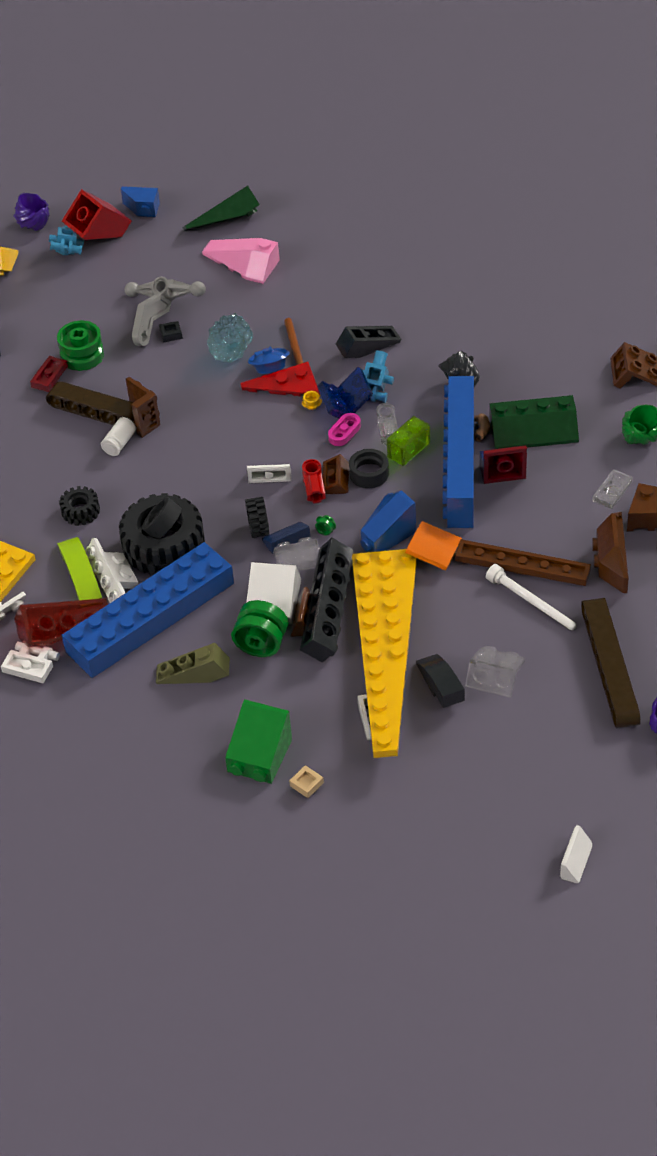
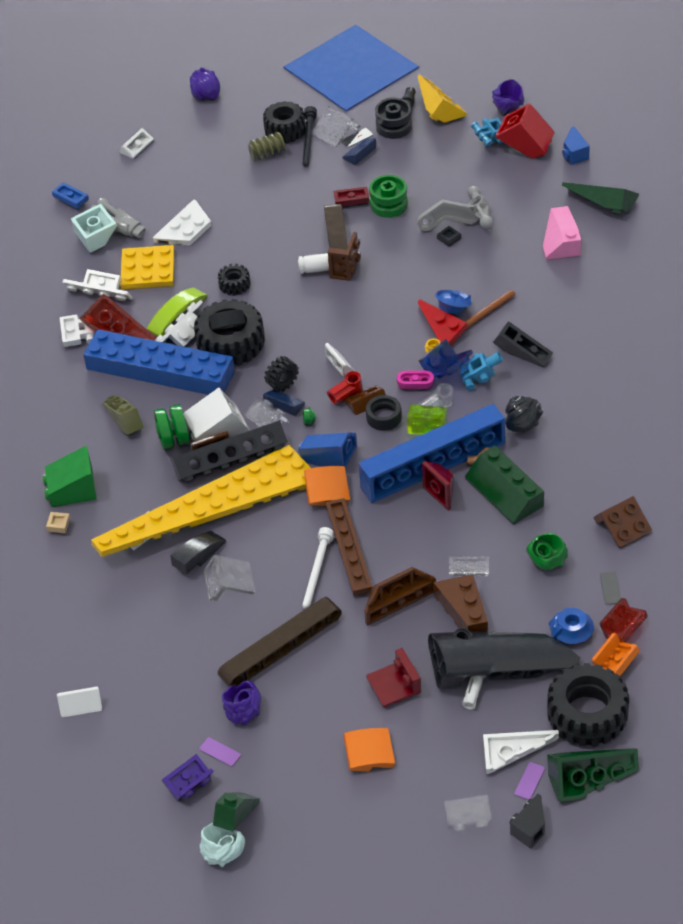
camera: 60 degrees right, 0 degrees up
(229, 338) = (453, 267): clear light blue hair -> none

